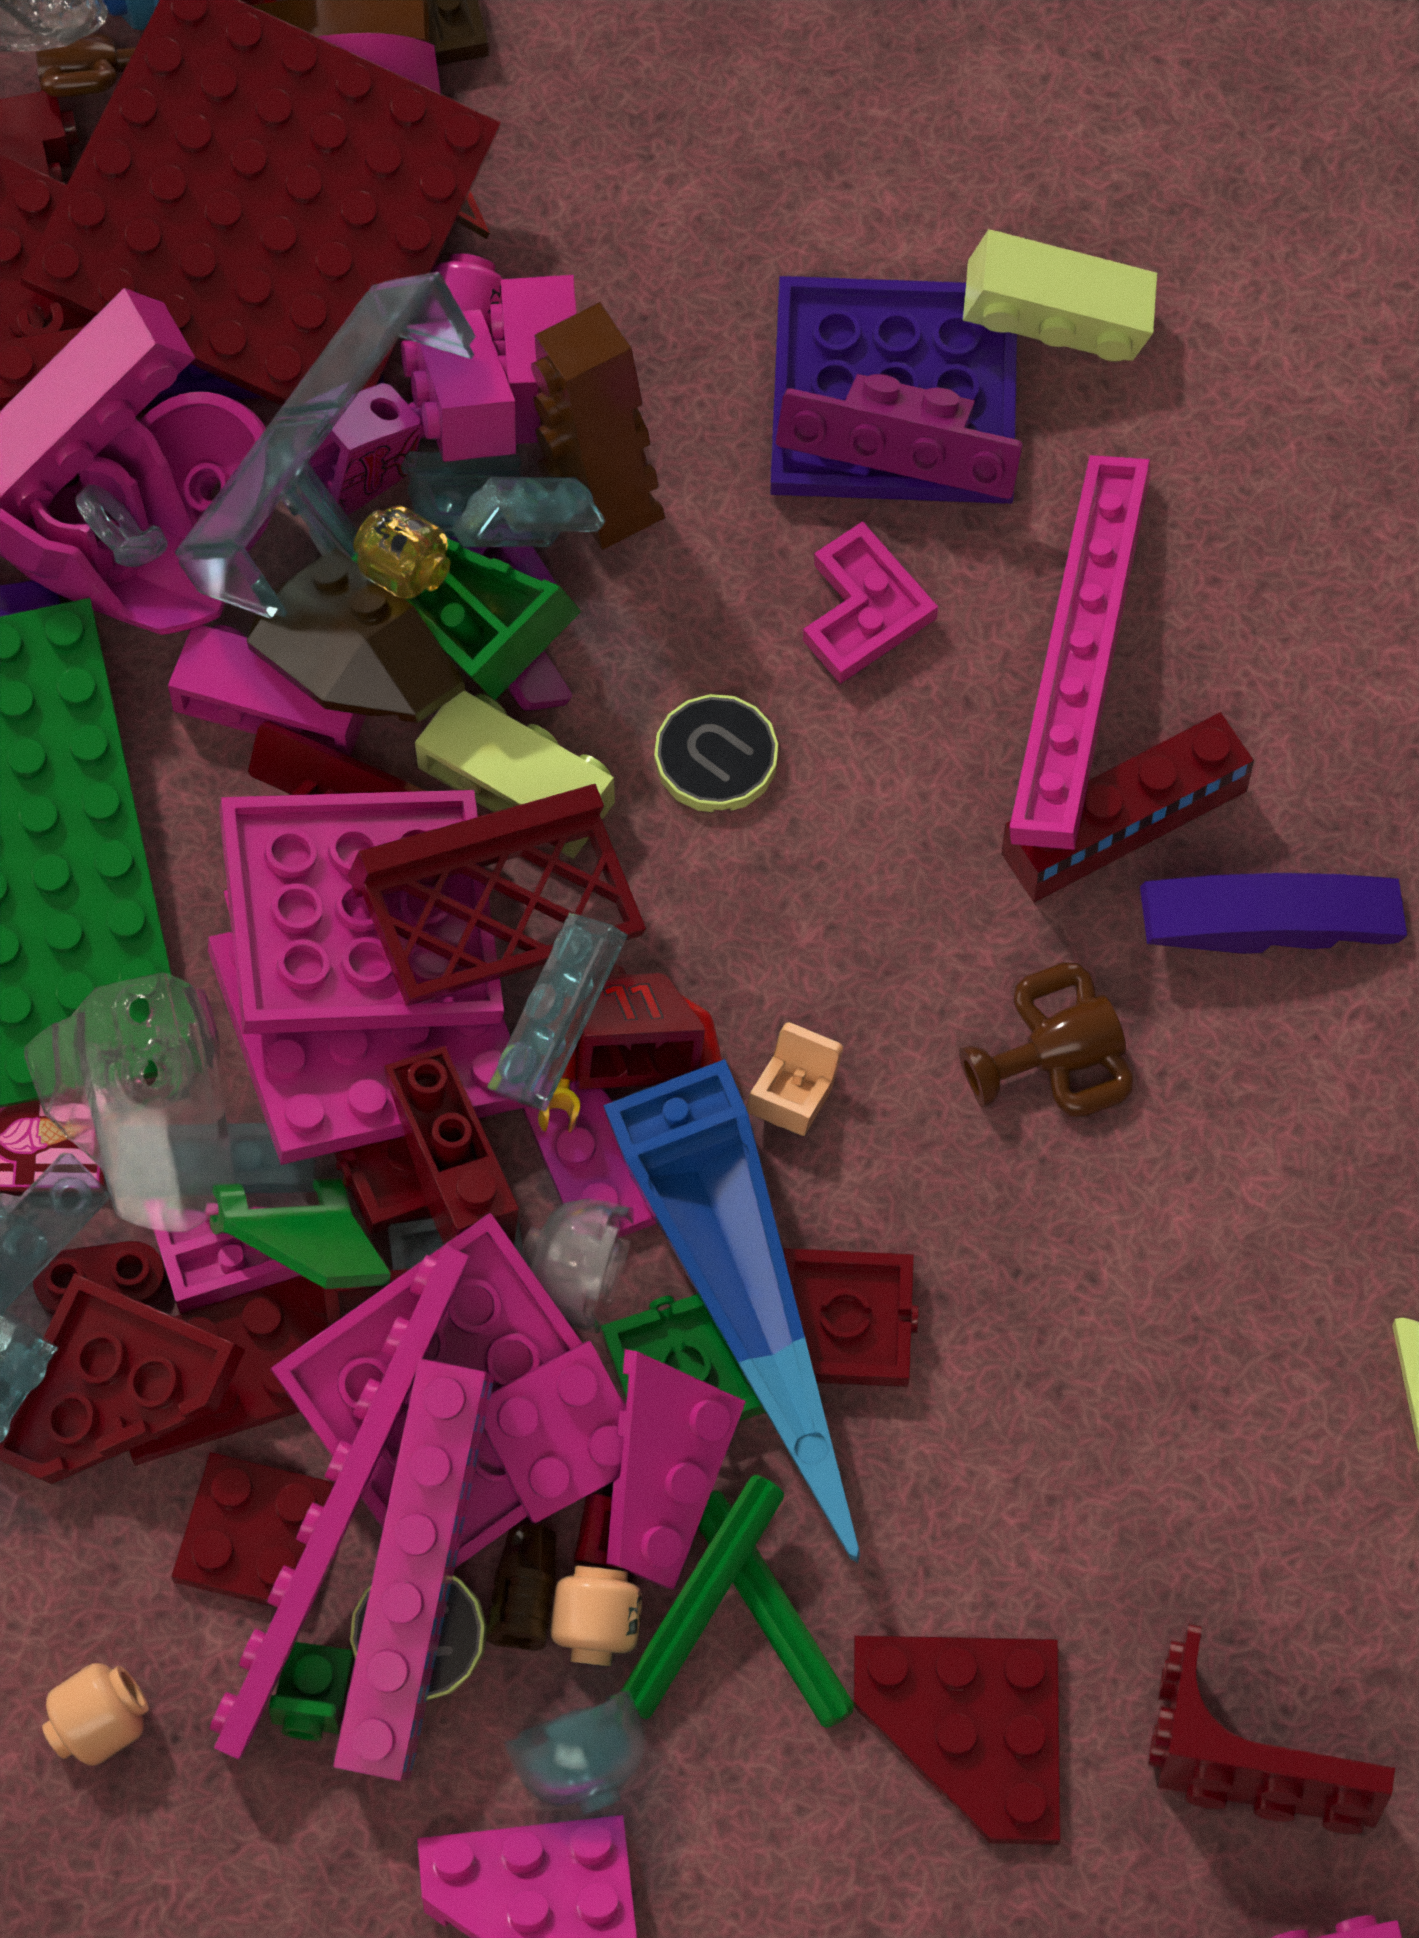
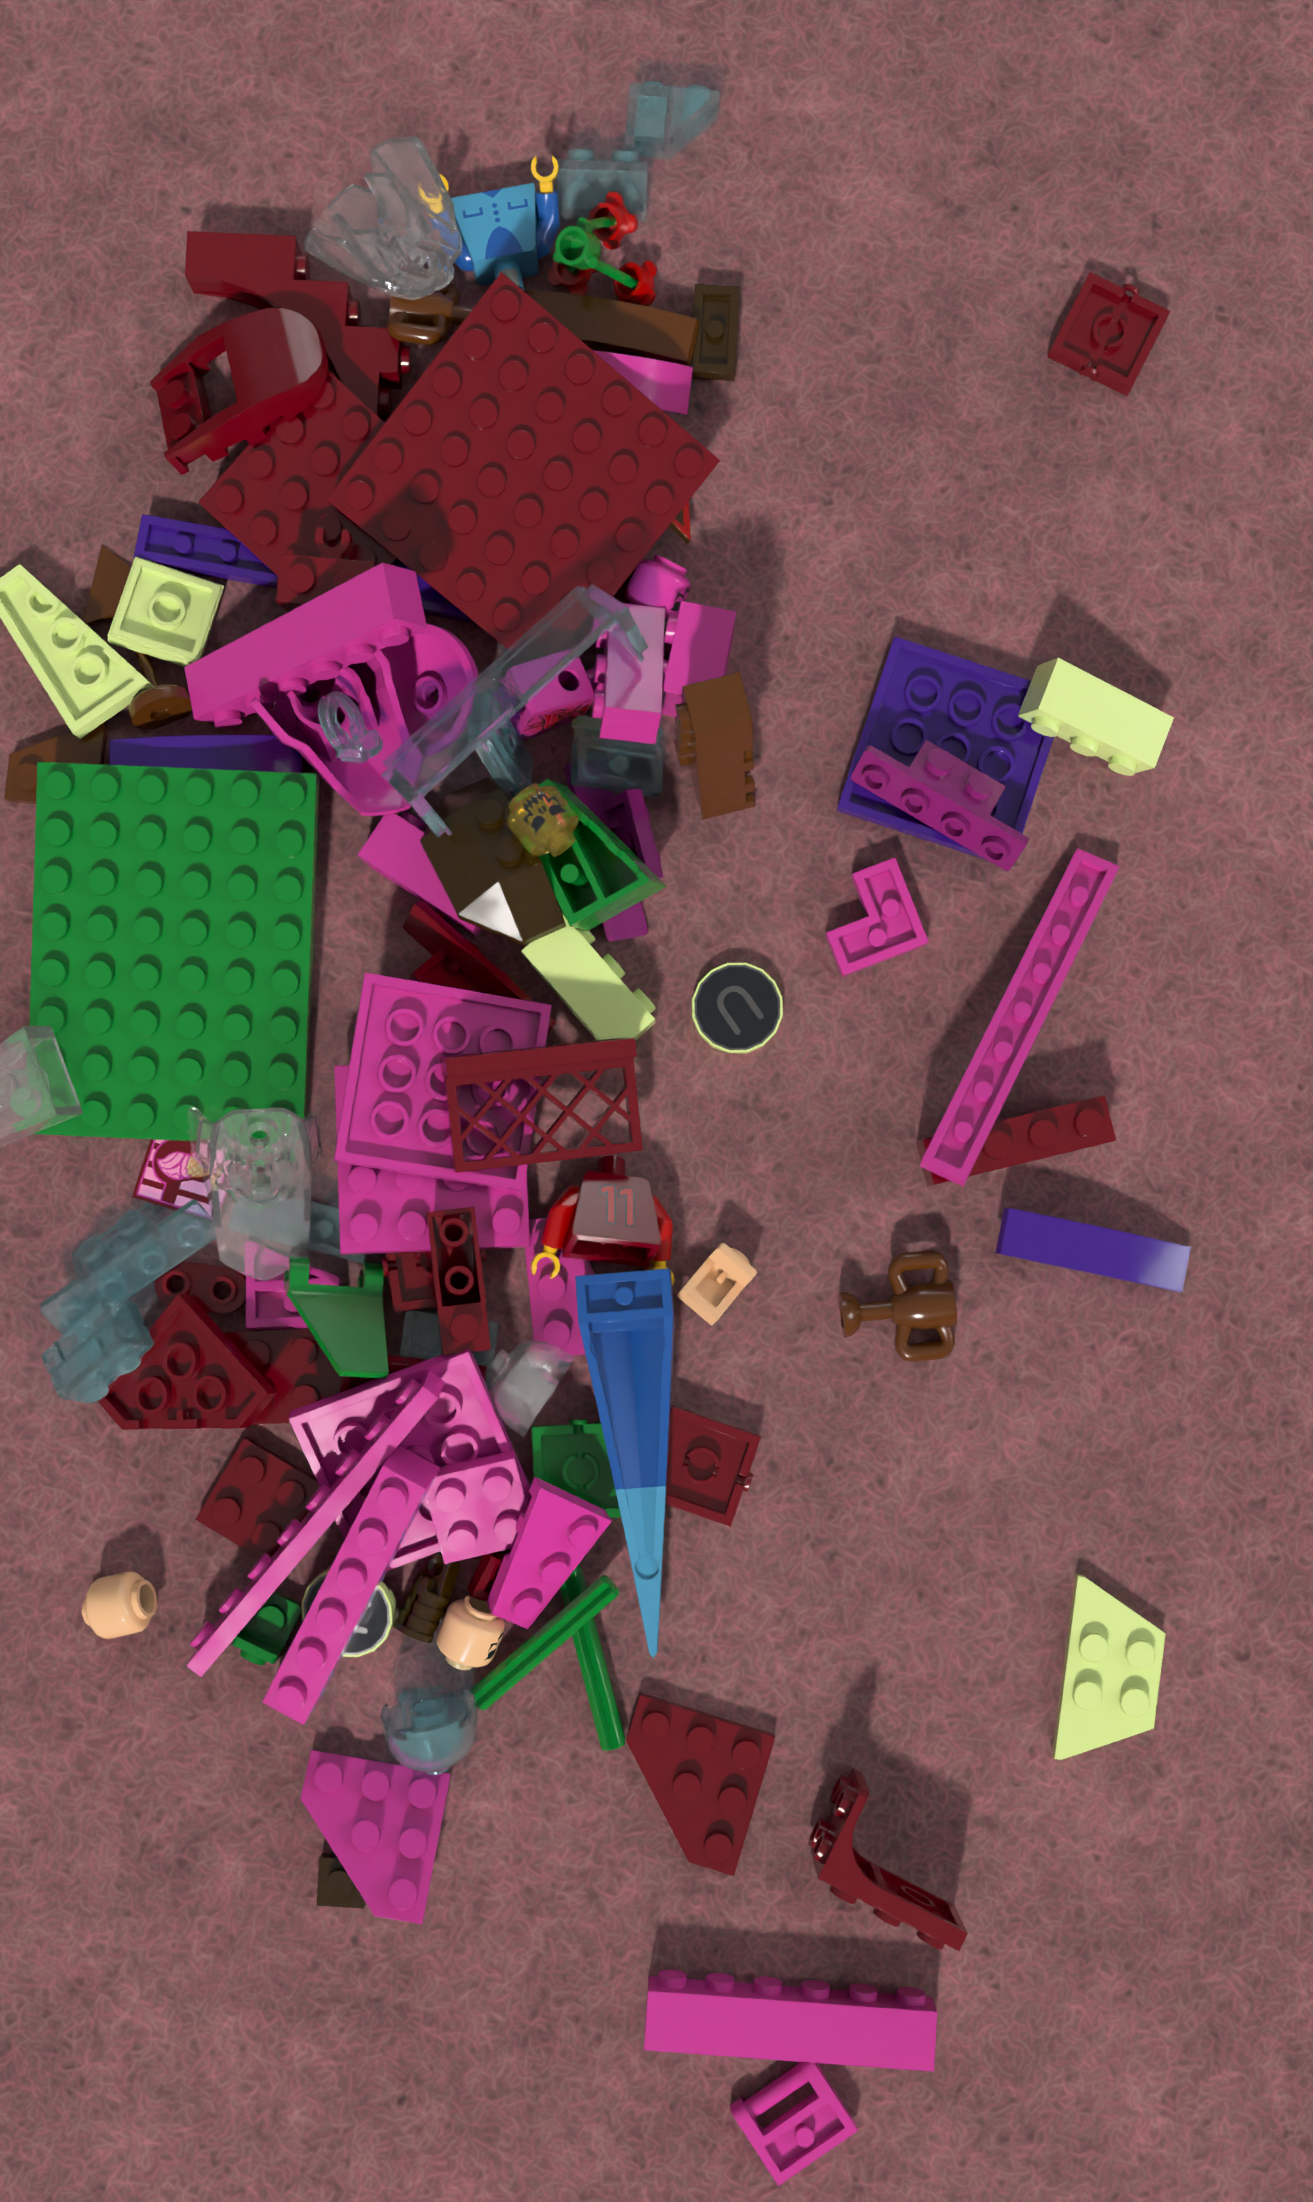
camera: 15 degrees right, 20 degrees up
(526, 512) = (649, 804): clear light blue bracket -> none
(557, 1011) = (559, 1205): clear light blue plate -> none

